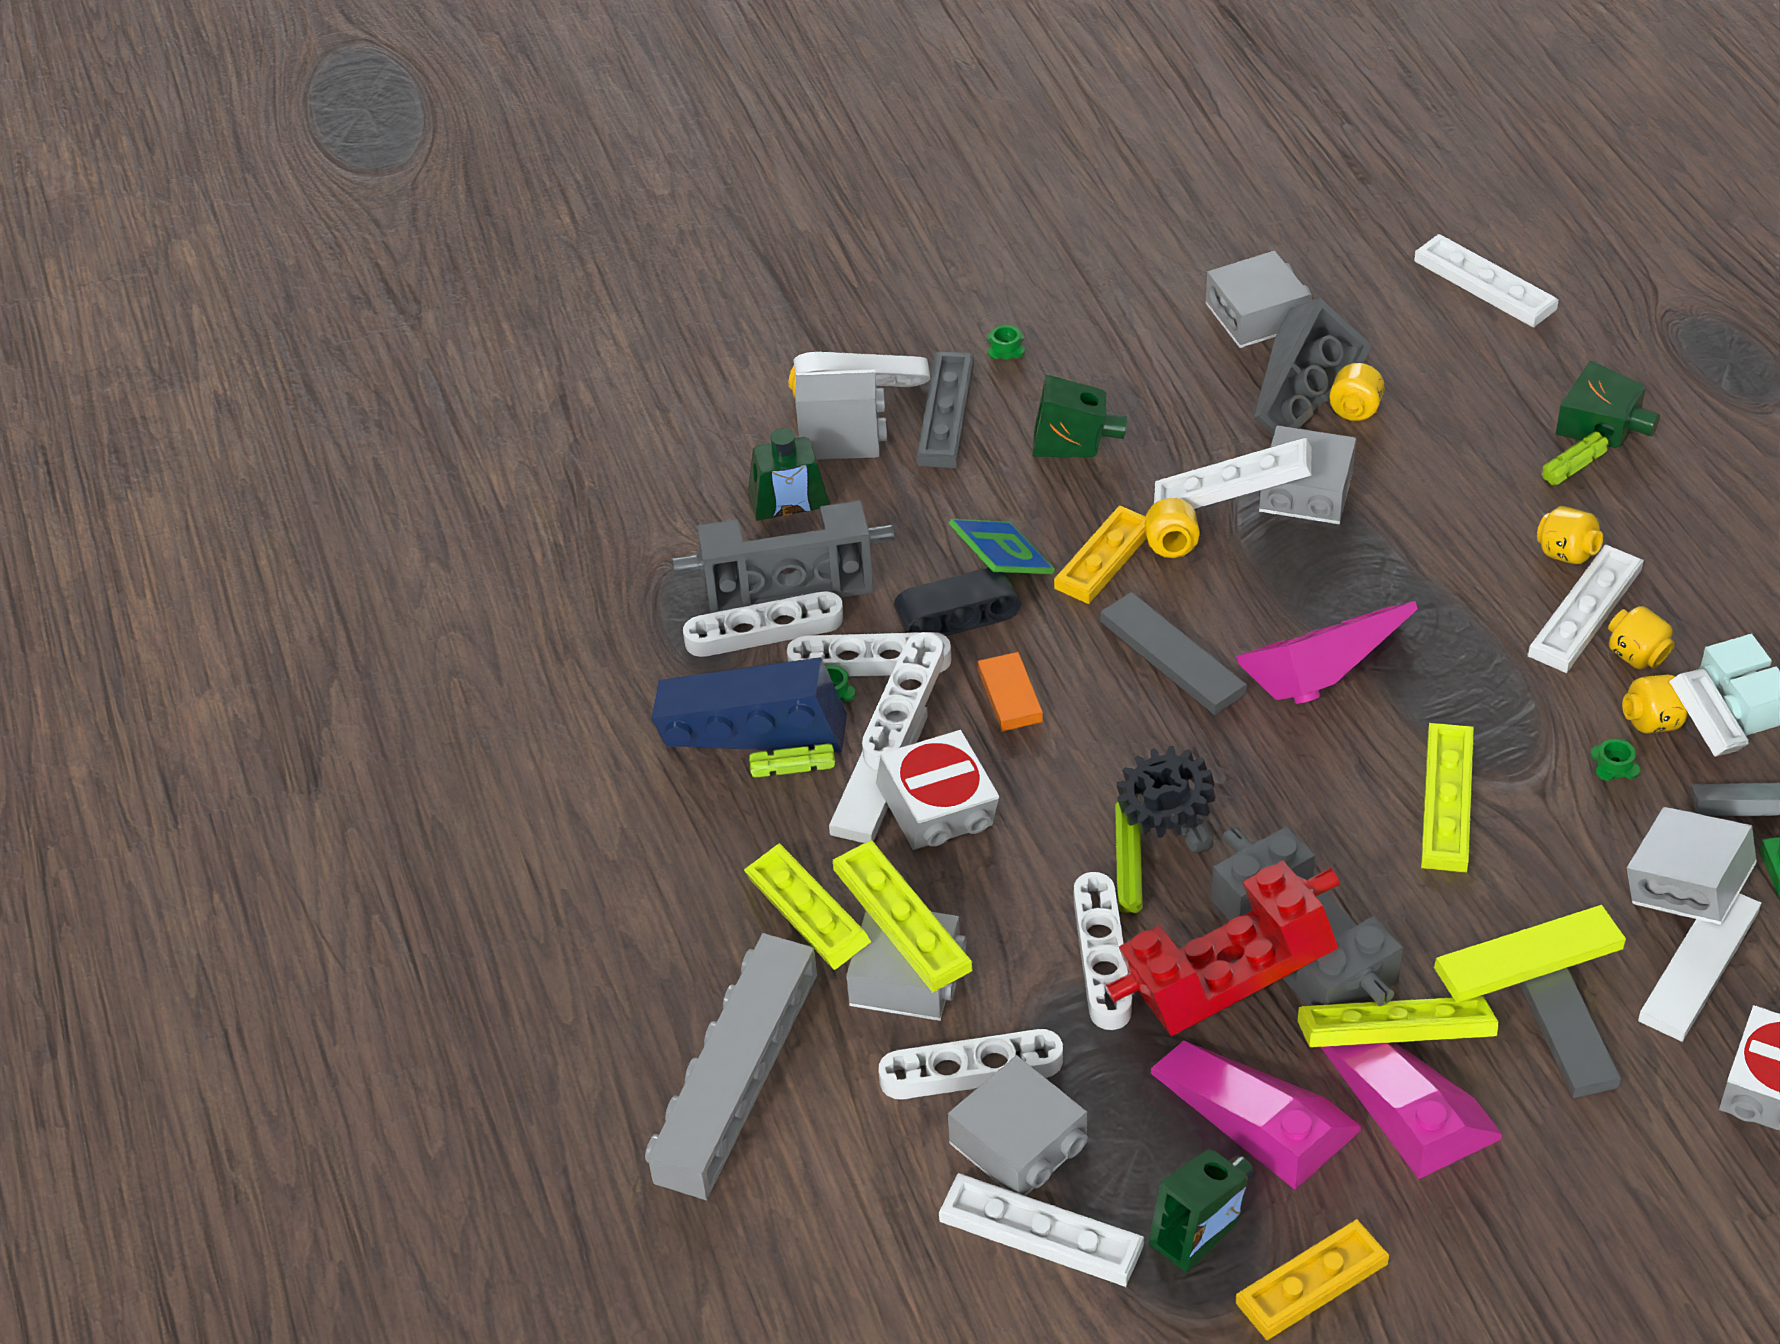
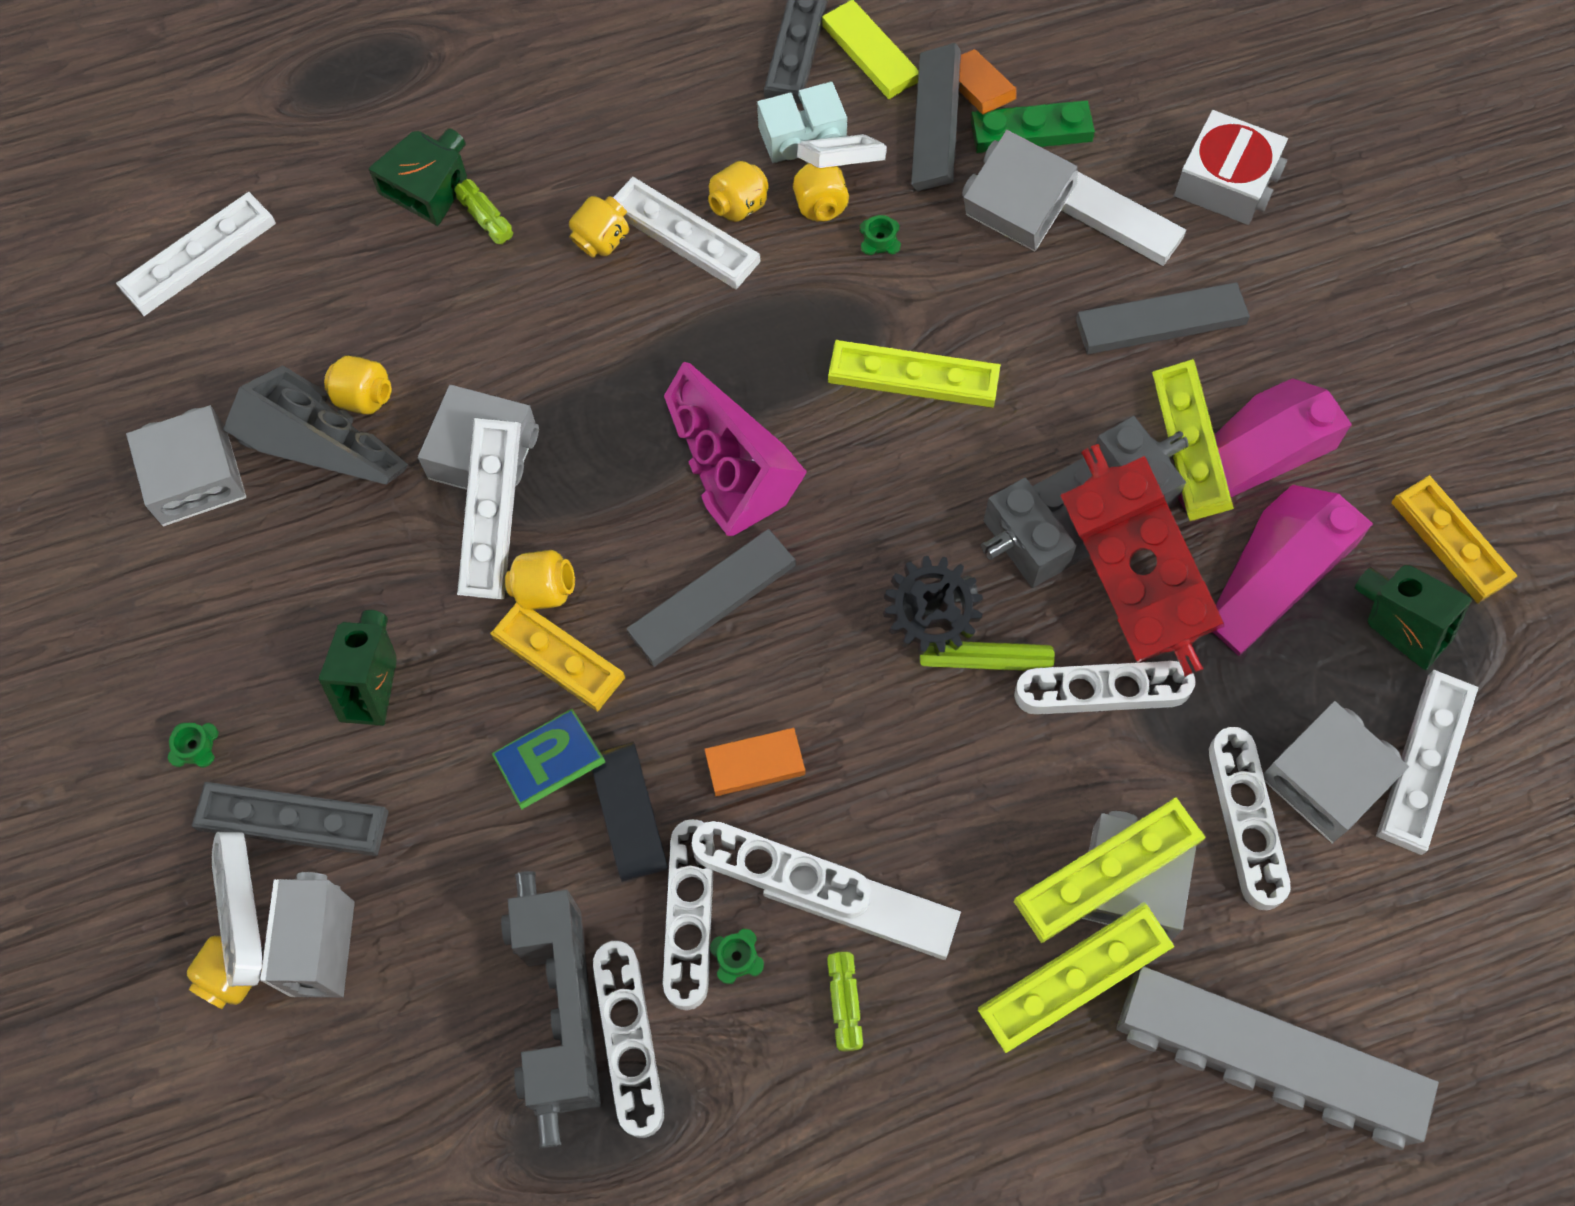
camera: 90 degrees left, 20 degrees up
(752, 708) = (783, 1053): dark blue wedge -> none
(785, 477) = (404, 1007): dark green torso -> none
(937, 790) = (916, 835): piece -> none
(1529, 953) = (1117, 327): neon yellow tile -> none

